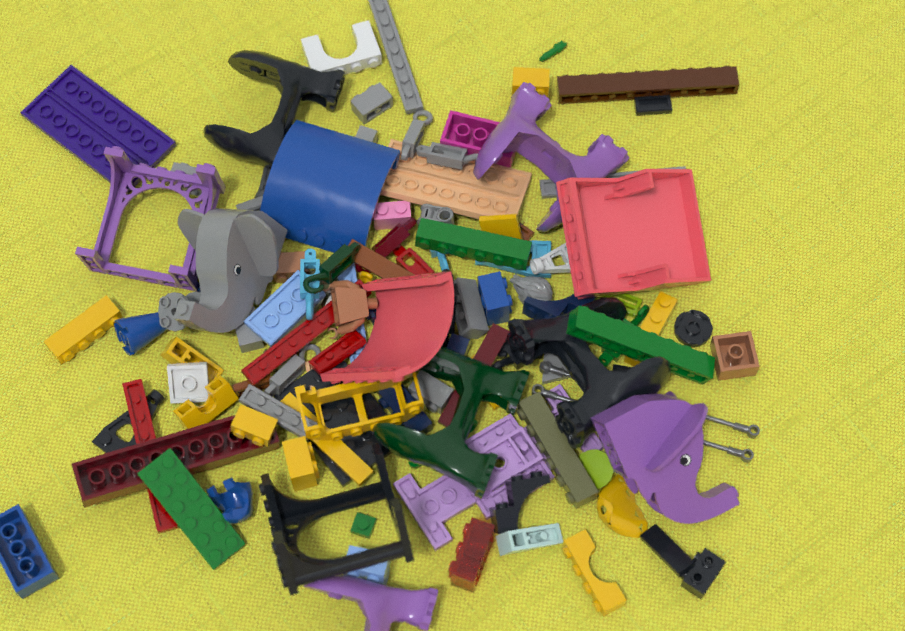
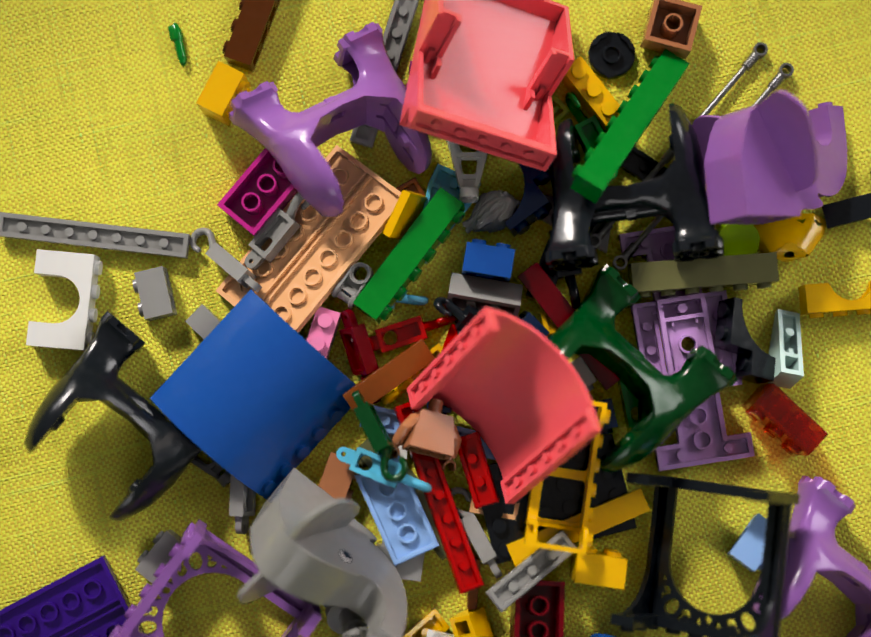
camera: 70 degrees left, 20 degrees up
(254, 426) = (542, 607): yellow brick -> none
(363, 525) = (690, 522): green plate -> none

